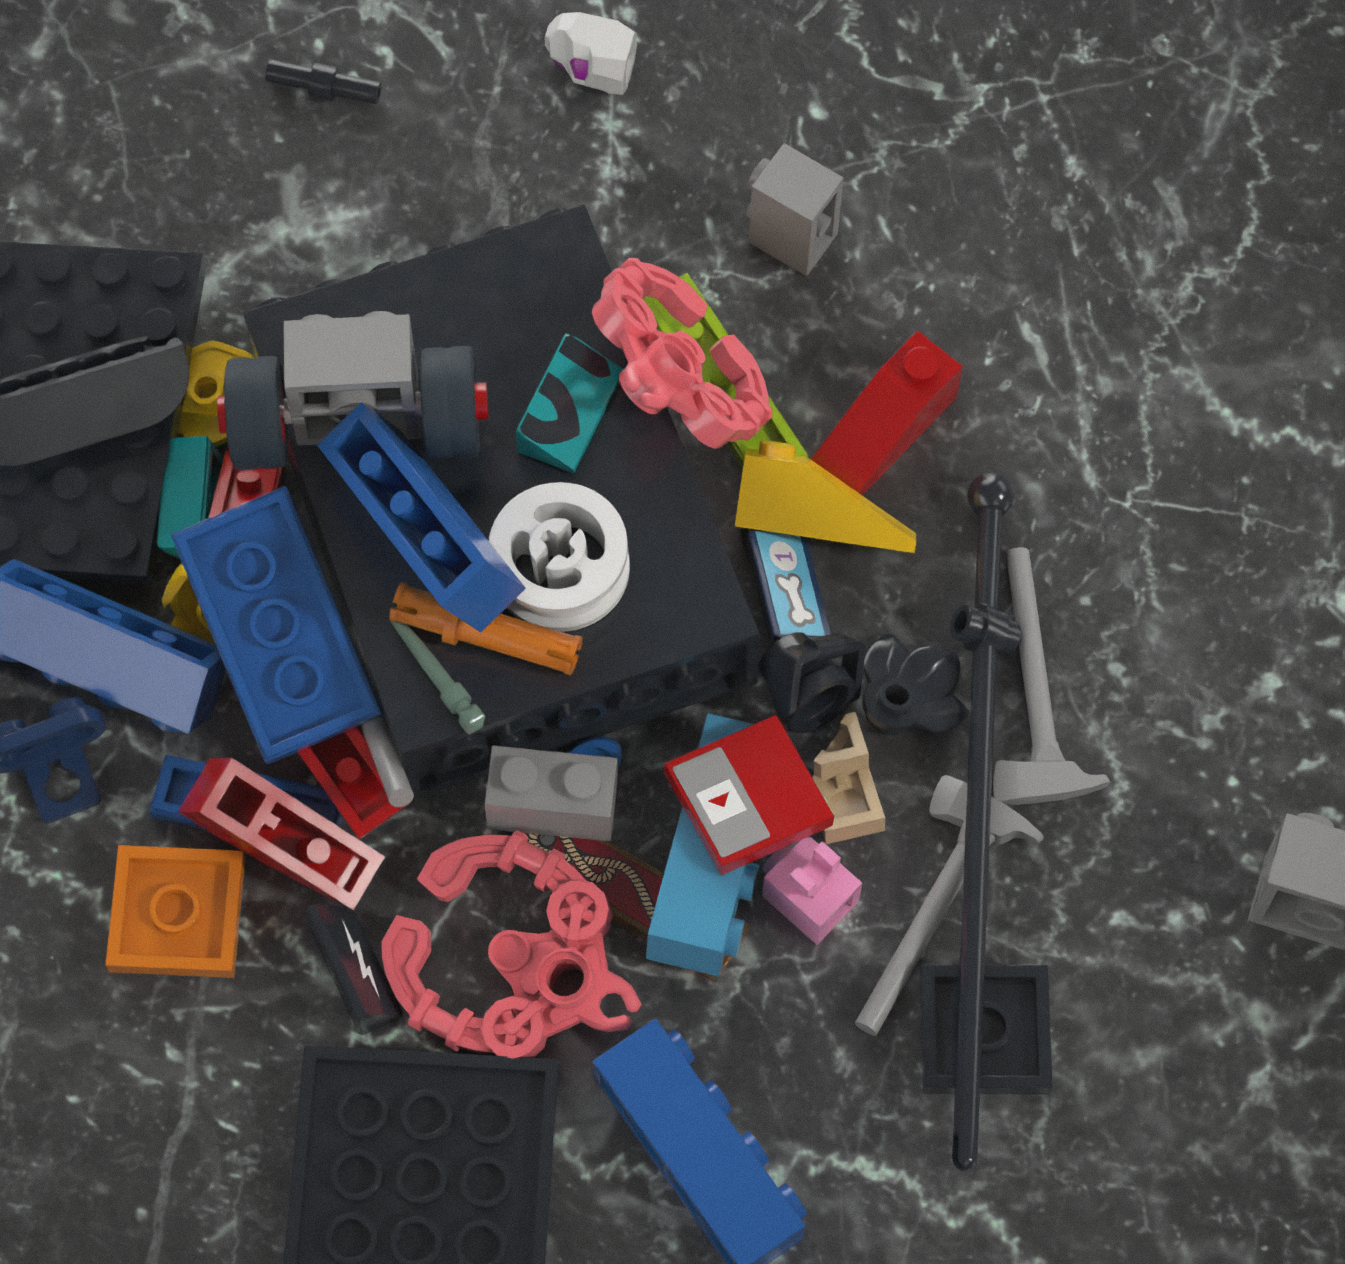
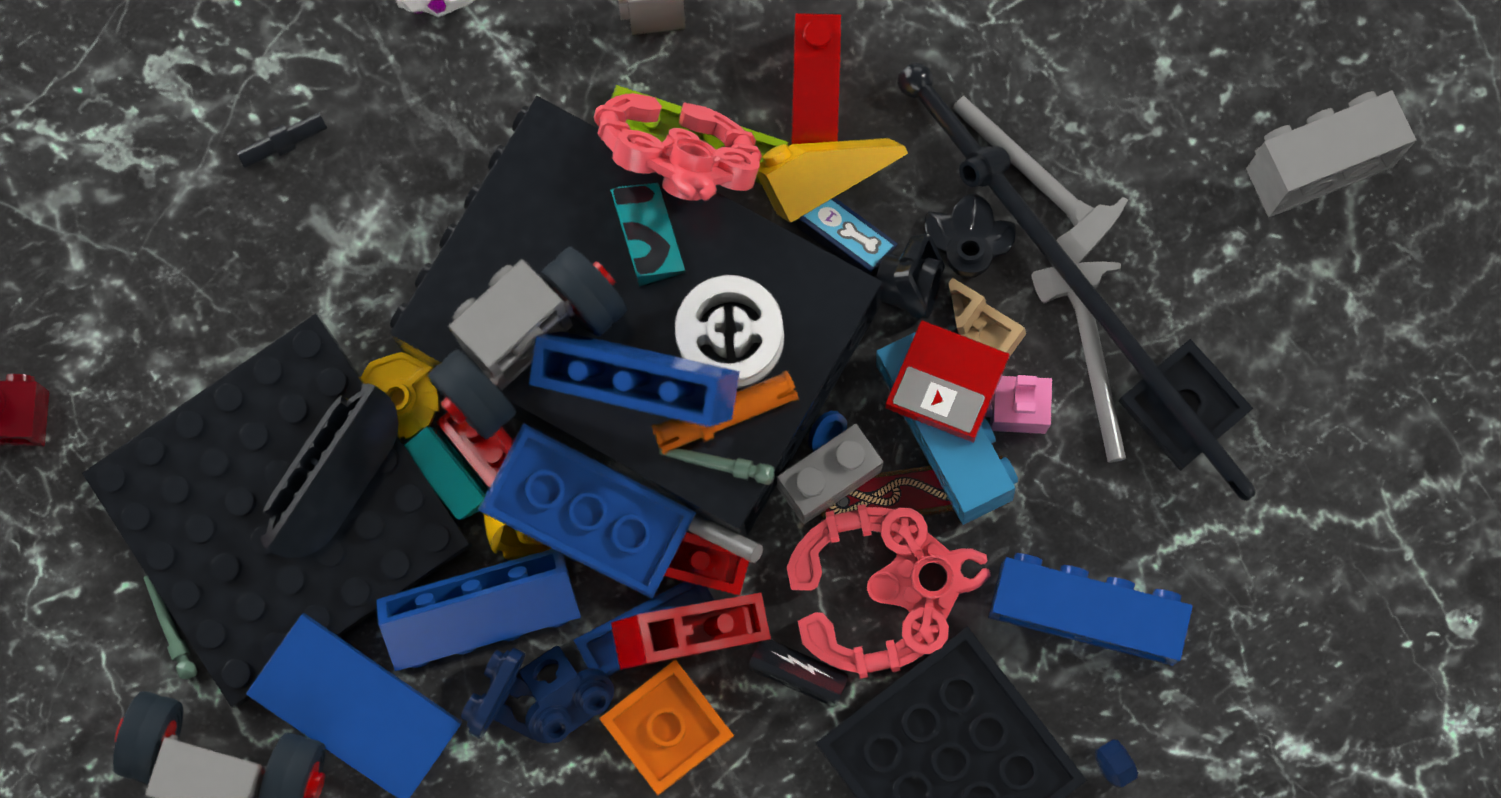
camera: 40 degrees left, 10 degrees up
(103, 804) = (565, 701): none -> dark blue bracket

